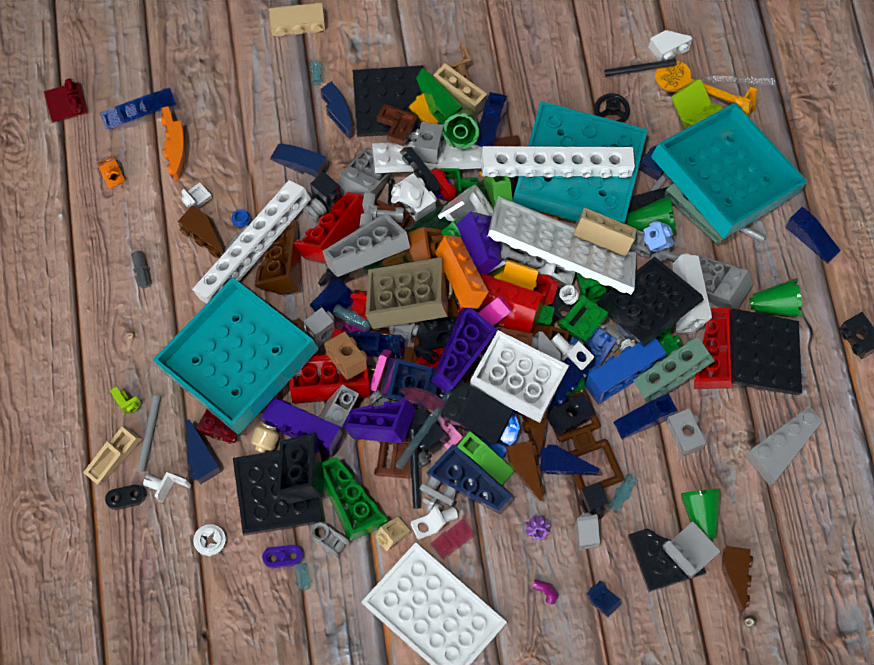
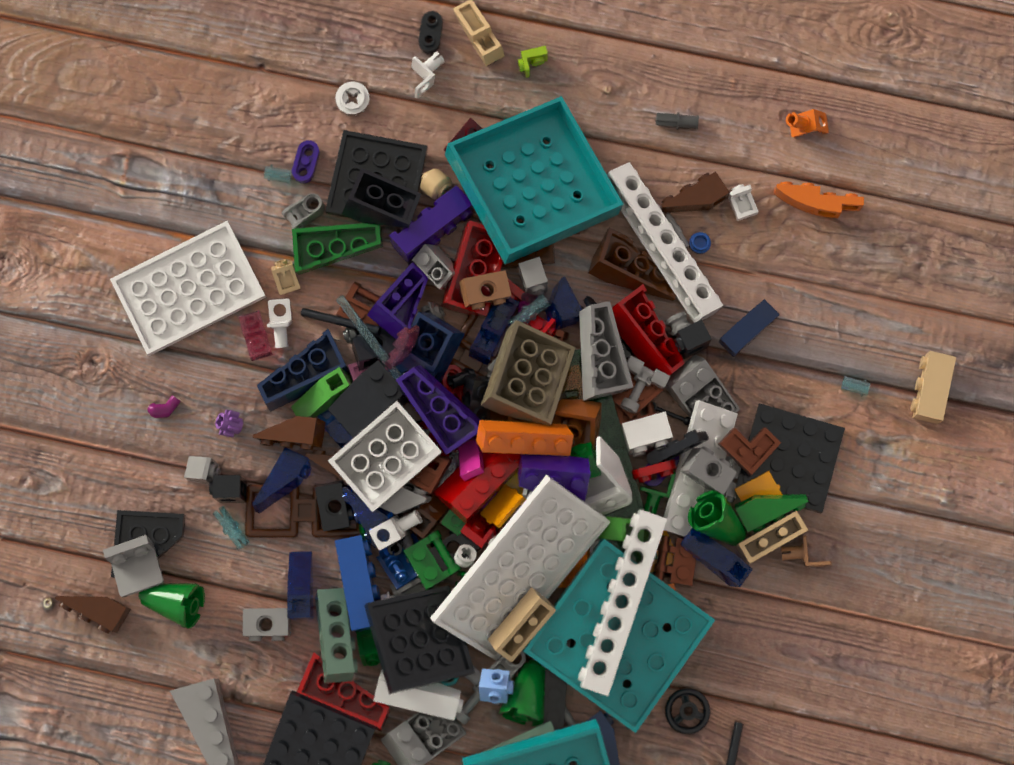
camera: 115 degrees right, 10 degrees up
(65, 101) = (914, 102): dark red hinge -> none
(137, 108) = (874, 175): clear blue slope -> none
(148, 433) = (489, 74): light grey bar -> none
(199, 458) = (443, 114): dark blue slope -> none
(336, 108) = (798, 393): dark blue slope -> none
(380, 370) = (460, 323): dark pink tile -> none
(407, 194) = (645, 417): white bracket -> none
(445, 498) = (303, 333): light grey hips -> none
(603, 599) = (129, 460): dark blue bracket -> none

